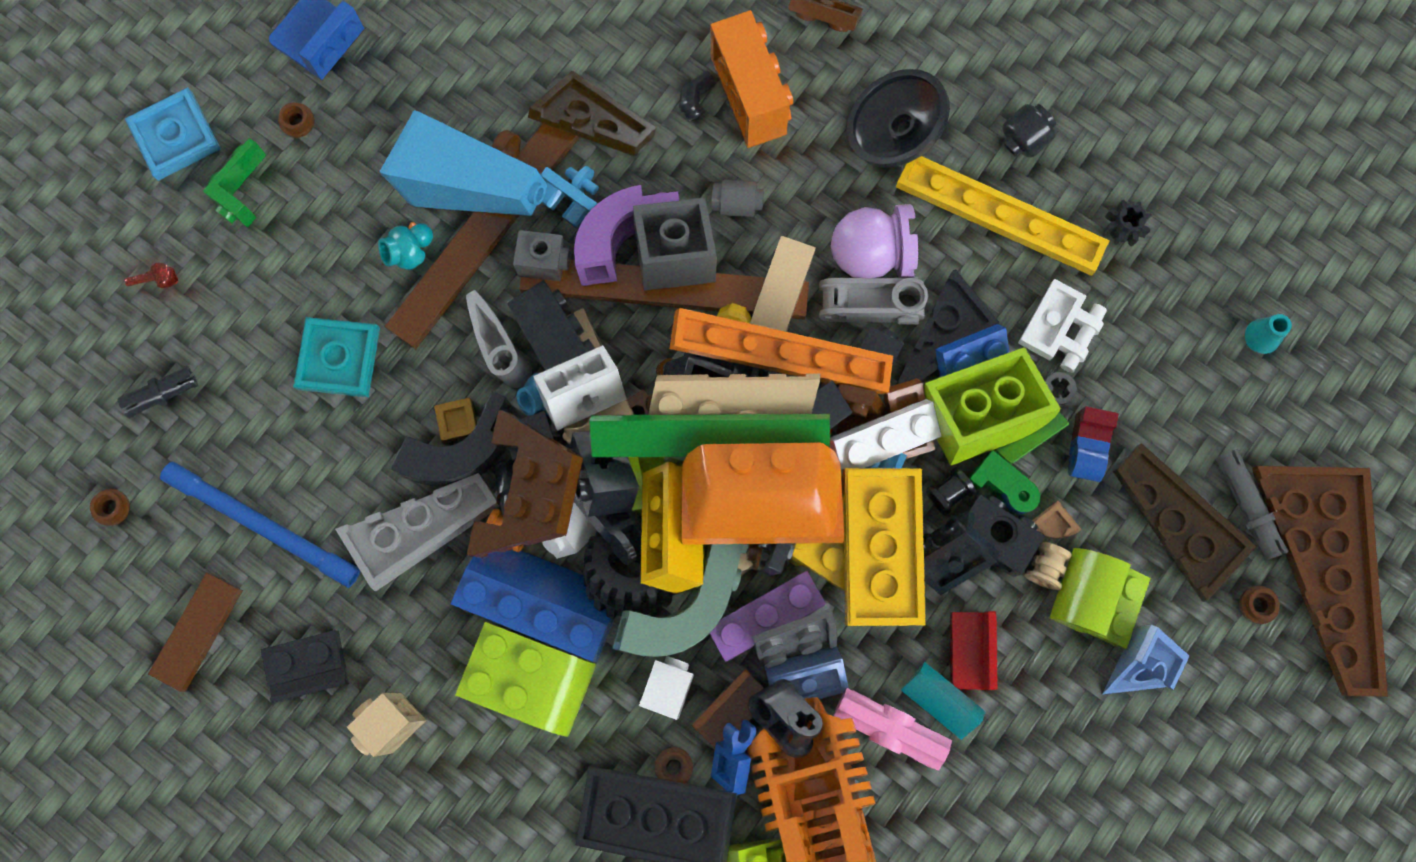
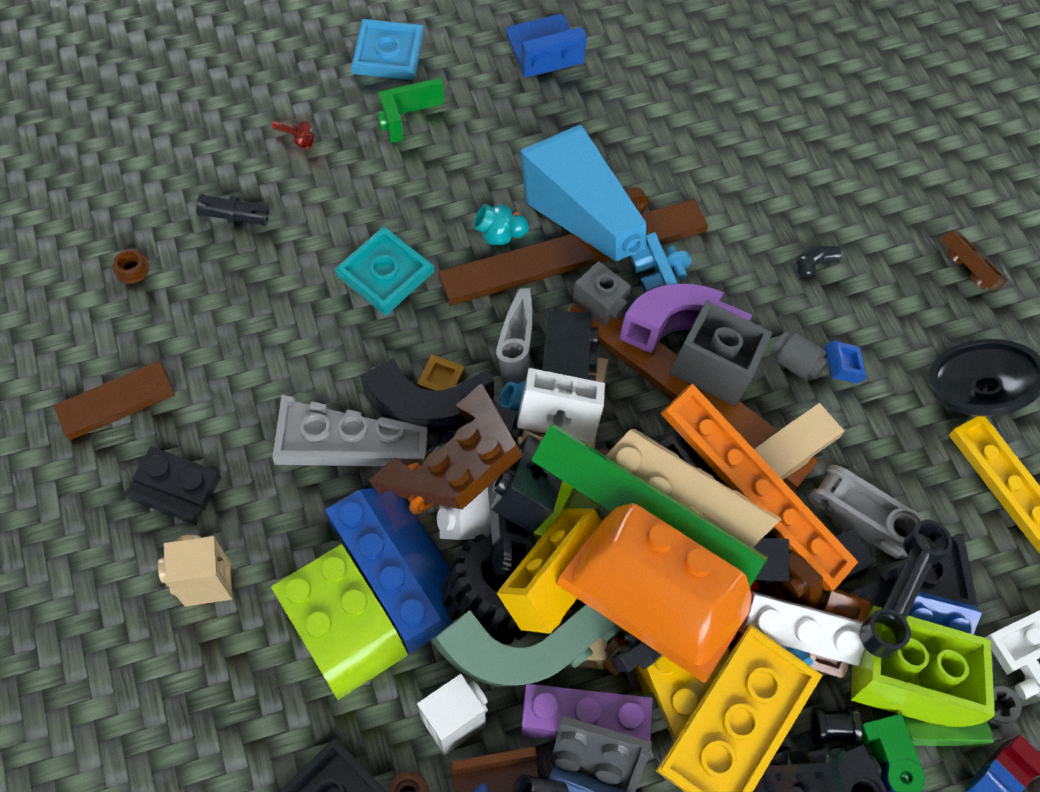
camera: 30 degrees right, 15 degrees down
(291, 112) = (484, 91): reddish brown plate -> none
(326, 562) = (254, 415): blue piece -> none
(592, 114) = (720, 221): dark brown wing -> none
(750, 78) = (874, 270): orange brick -> none
(777, 178) = (845, 362): none -> blue tile
(872, 243) = (902, 462): lavender tile -> none
(941, 352) = (906, 589): none -> black piece

